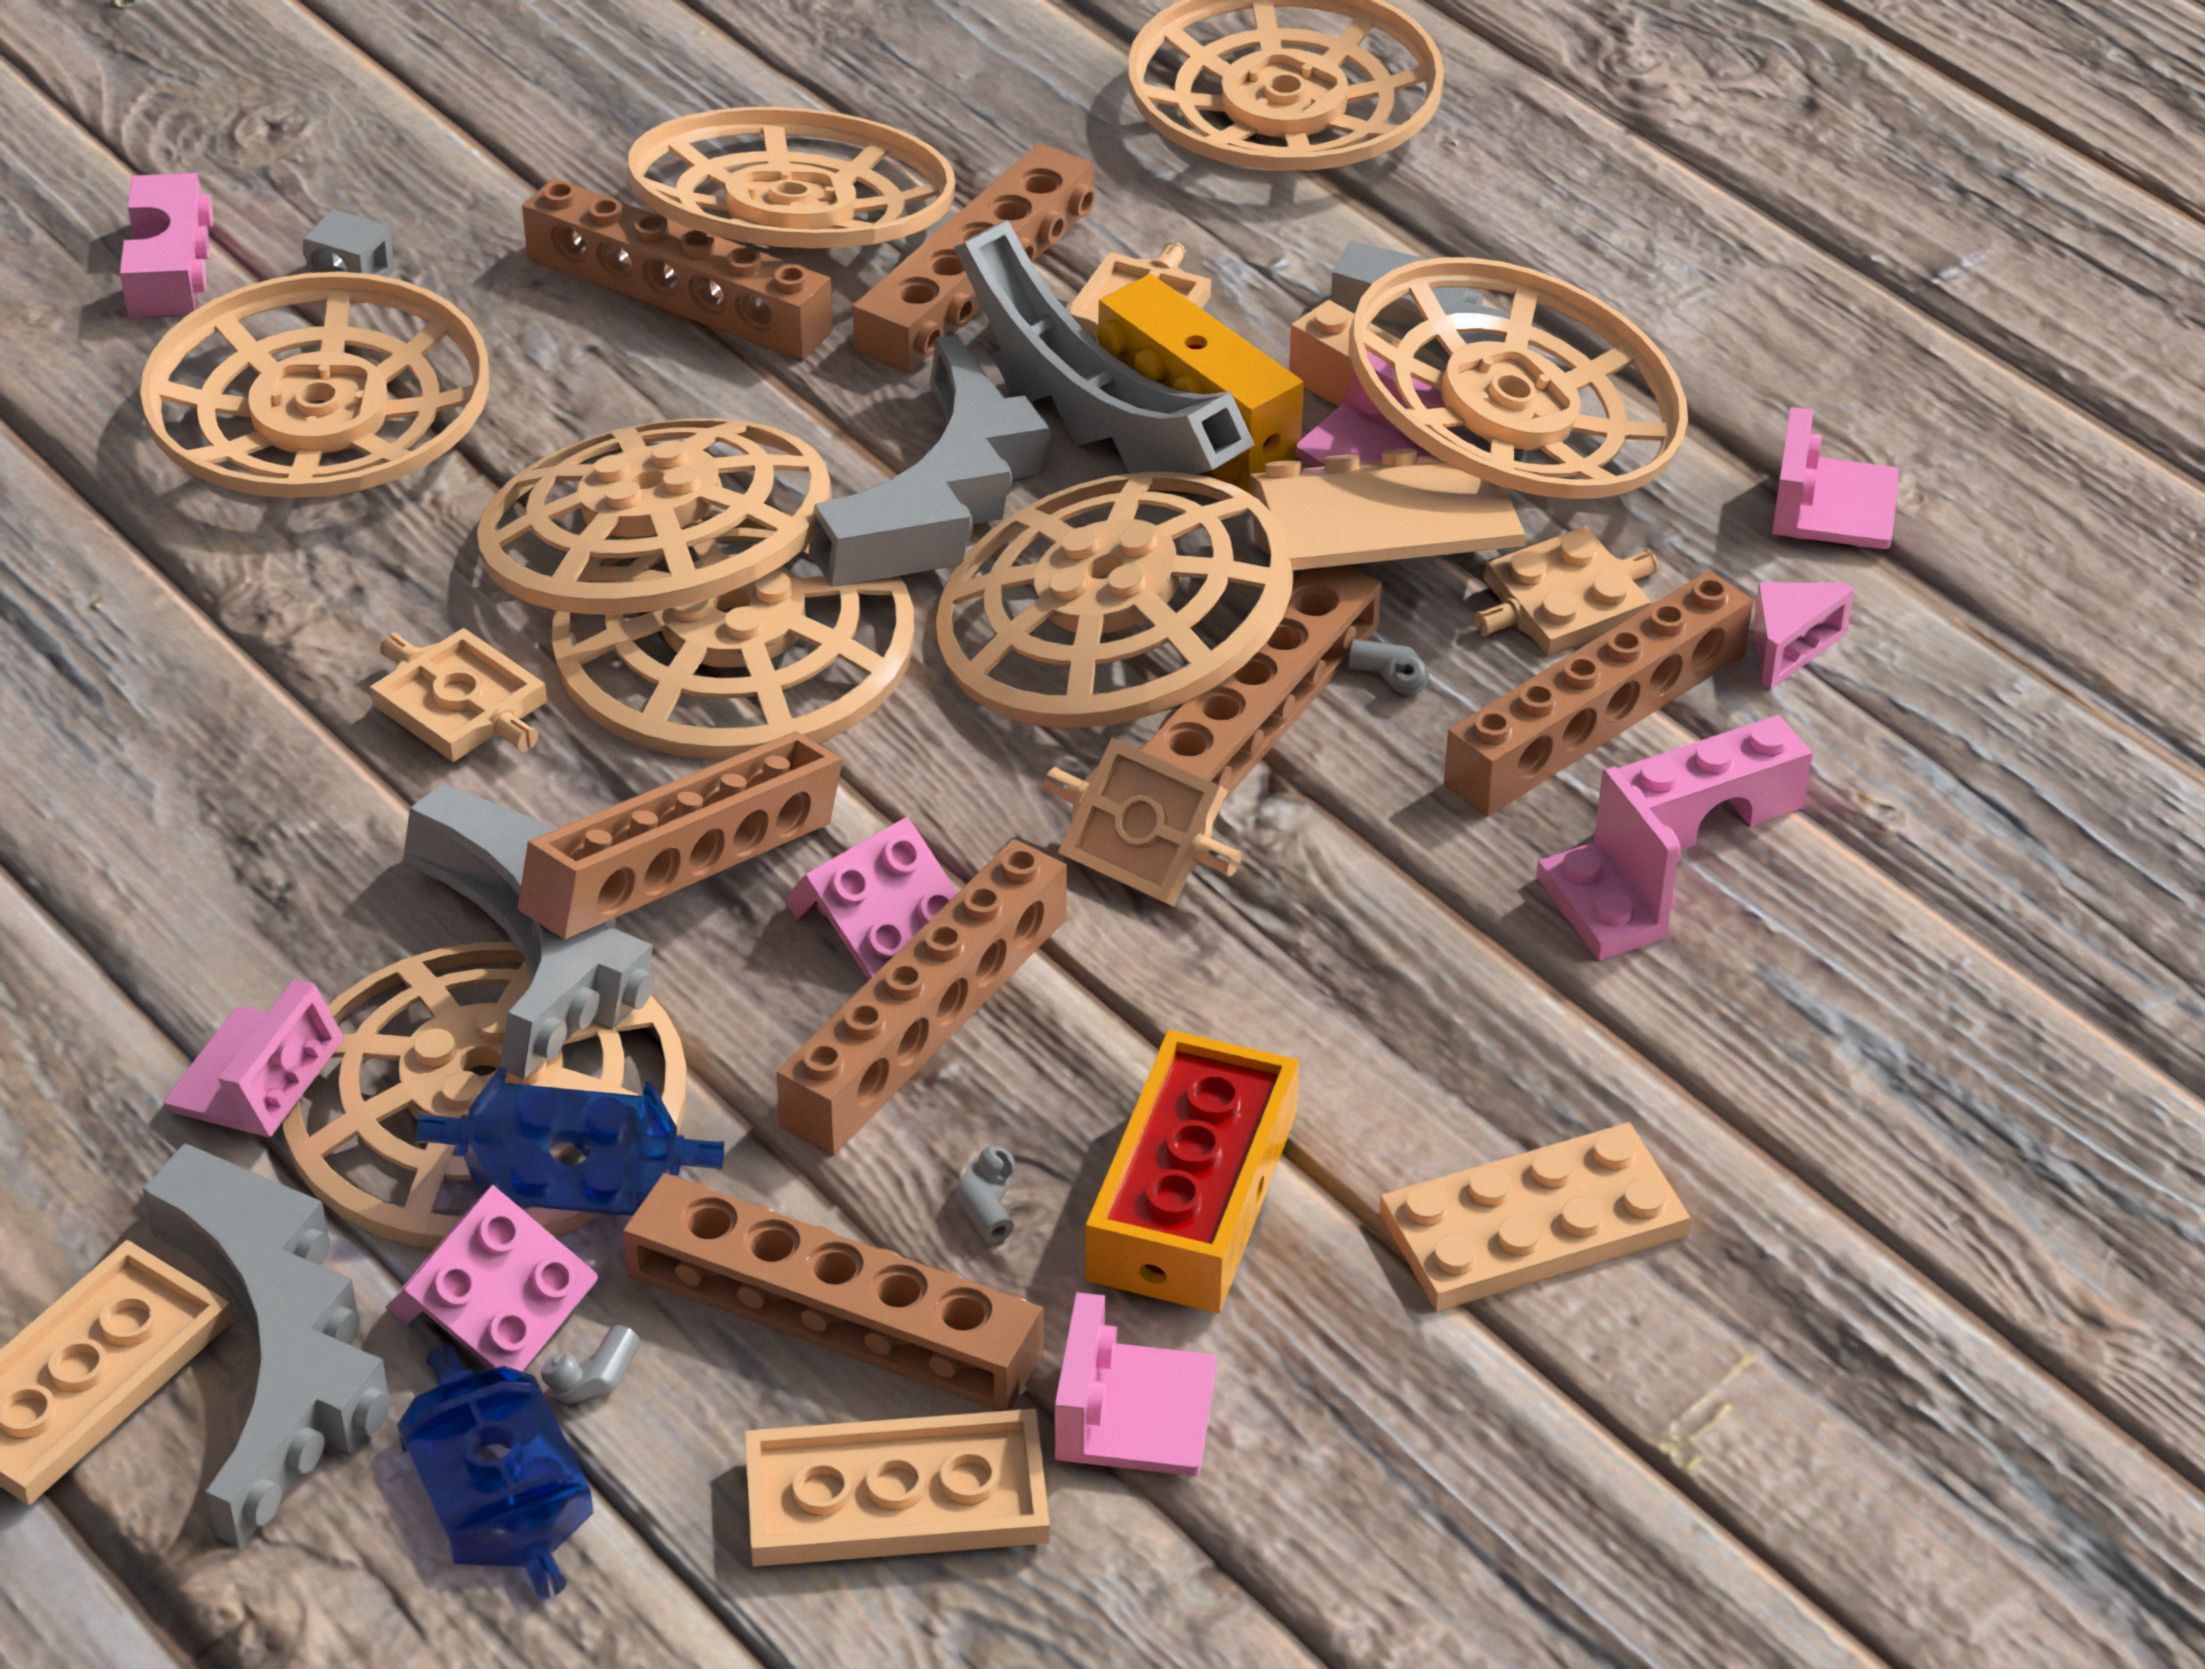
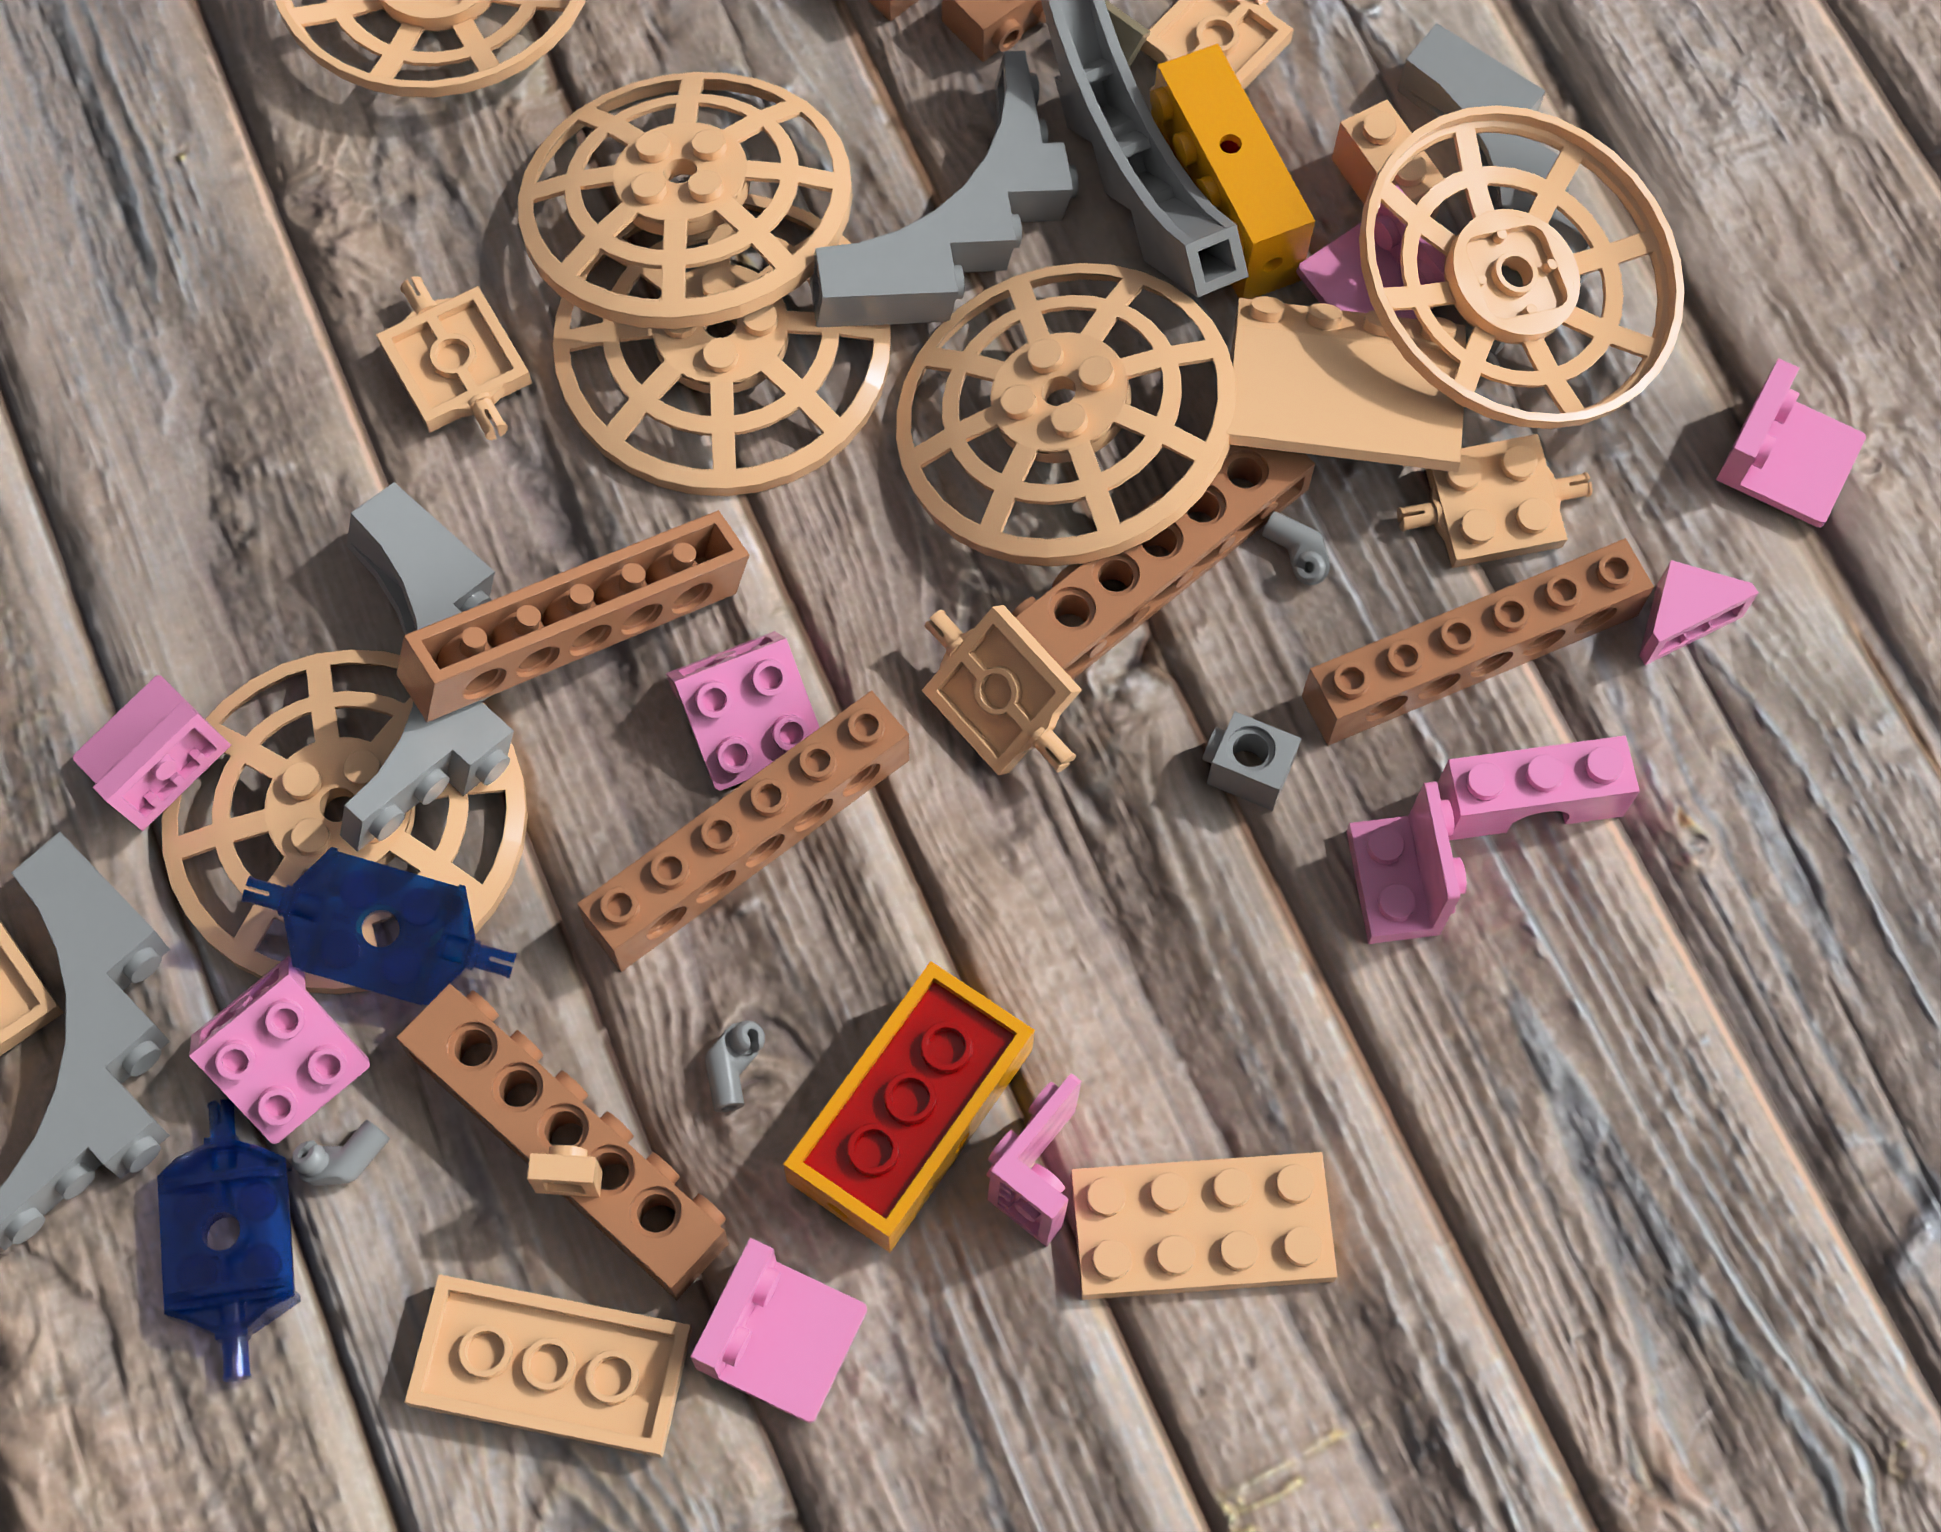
camera: 15 degrees right, 25 degrees up
(859, 1282) = (565, 1172): none -> light nougat plate
(1346, 1192) = (1033, 1195): none -> bright pink bracket
(1417, 830) = (1255, 784): none -> light grey brick

